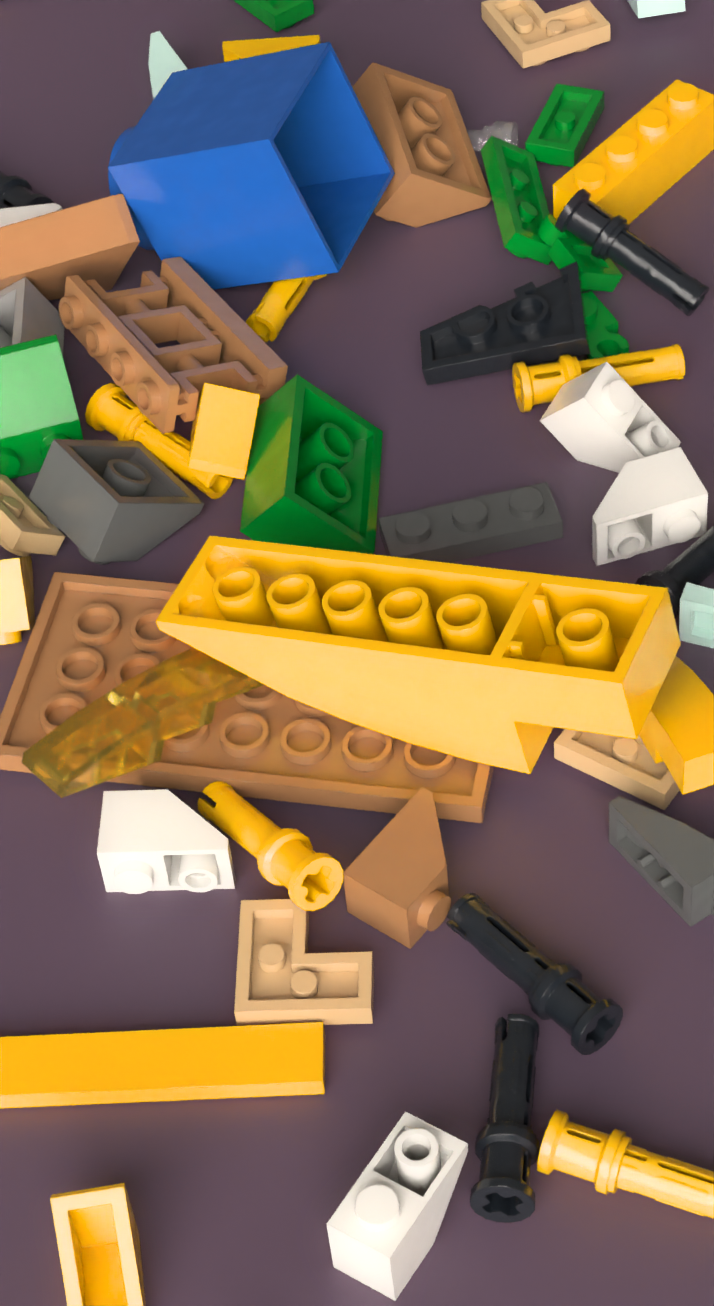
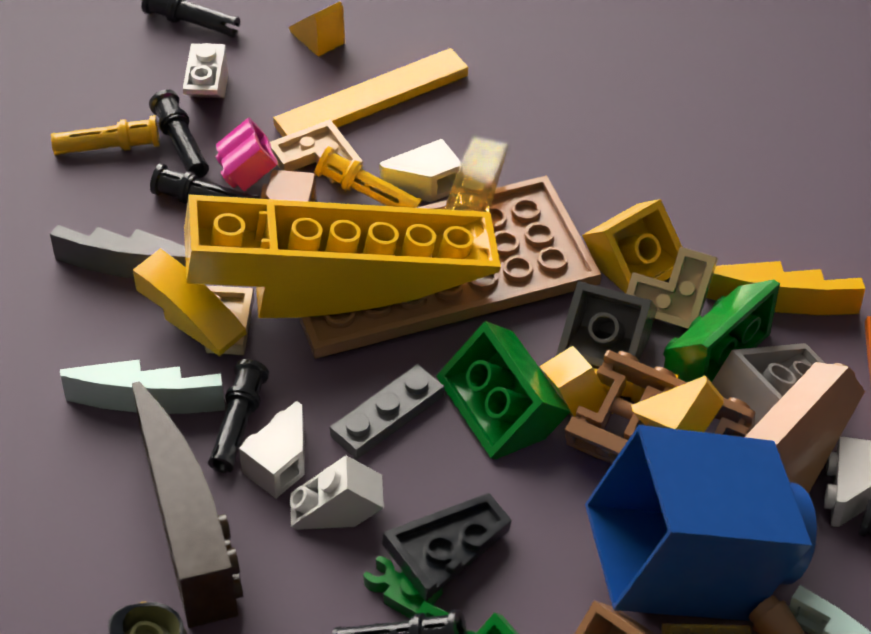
camera: 145 degrees right, 0 degrees up
(154, 293) = (683, 407): none -> yellow slope
(430, 972) = (245, 155): none -> dark pink brick
(542, 382) = (369, 544): yellow pin -> none

